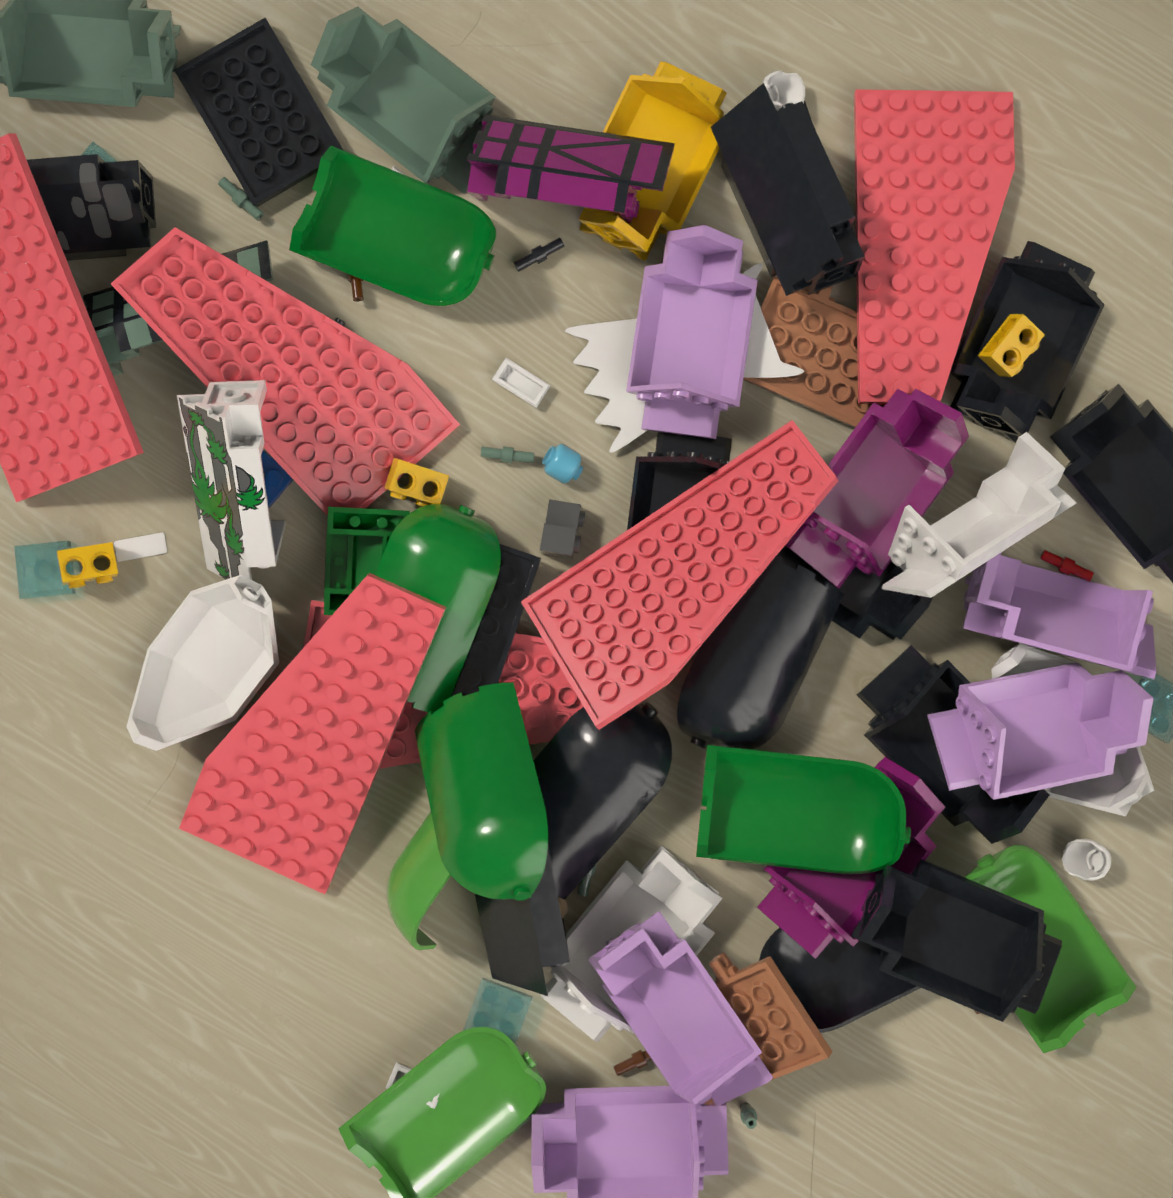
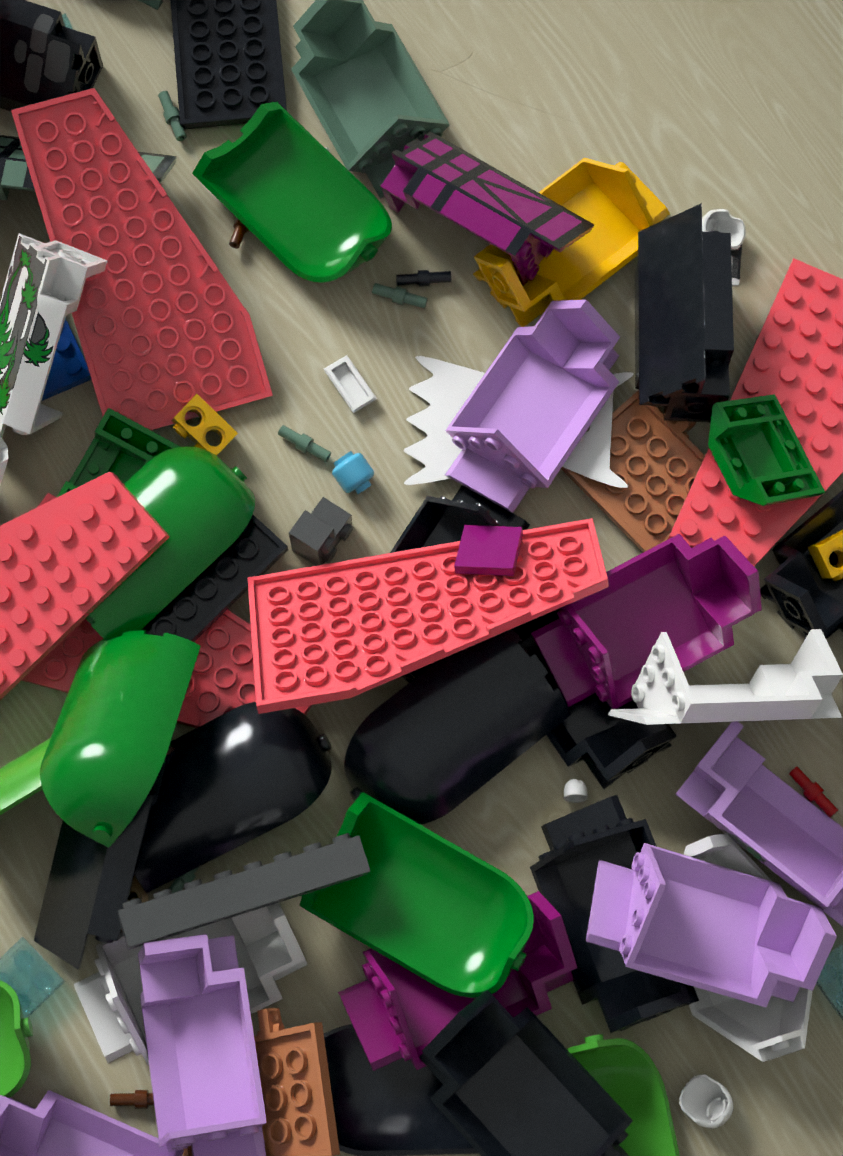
camera: 20 degrees right, 15 degrees down
(525, 280) = (399, 295): none -> sand green bar
(653, 877) = (242, 892): none -> dark grey brick
(719, 491) = (488, 550): none -> magenta tile
(872, 653) = (575, 791): none -> white hinge
(909, 293) = (760, 452): none -> green slope

